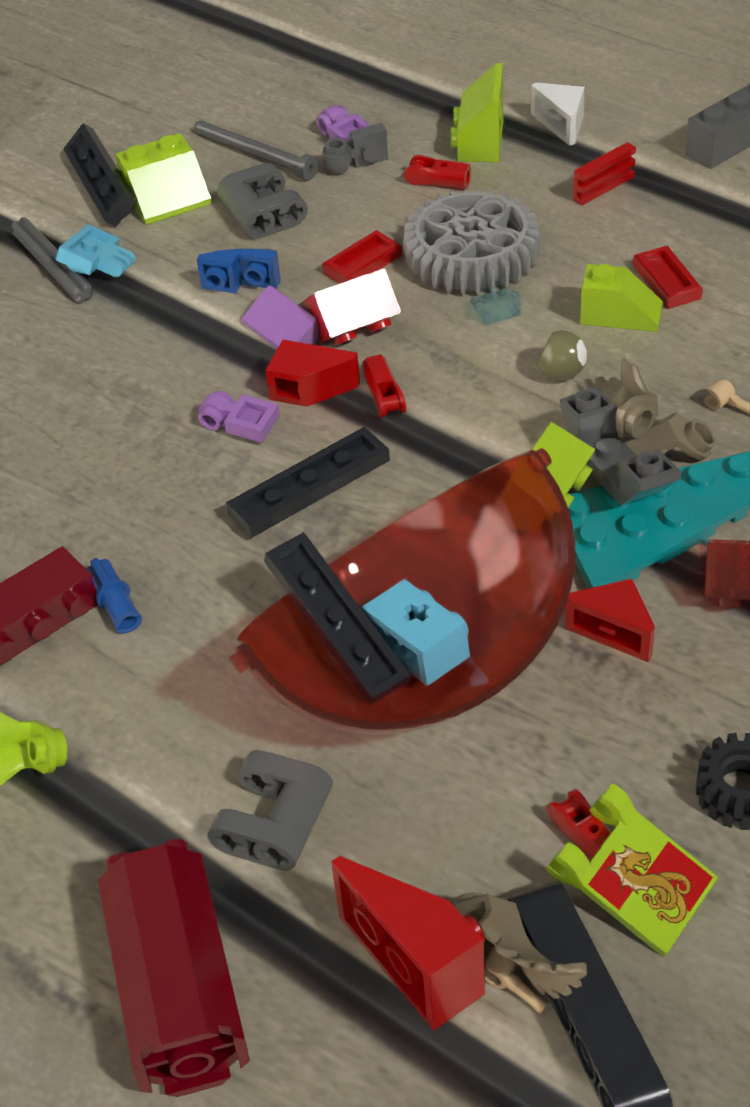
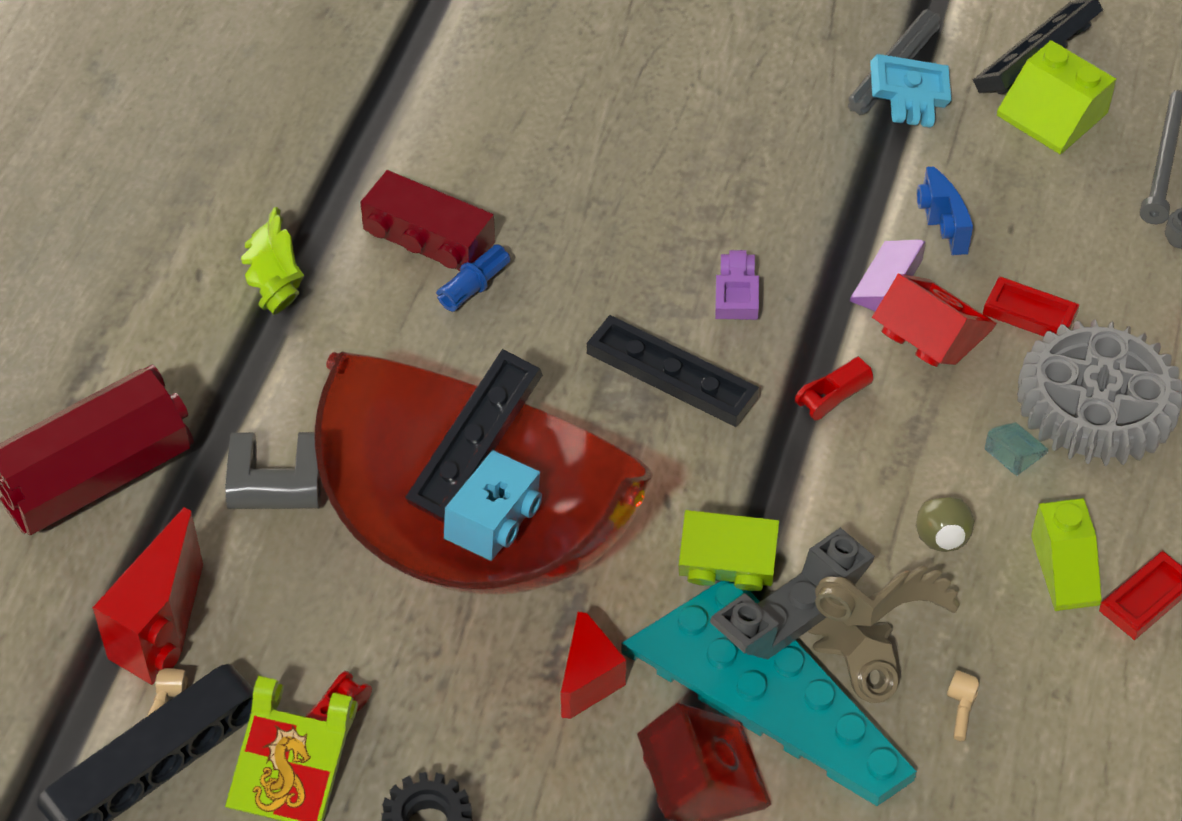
camera: 65 degrees right, 5 degrees up
(254, 203) = (1047, 194): dark grey connector -> none
(310, 373) = (817, 318): red slope -> none
(504, 929) = (169, 669): dark tan plant -> none

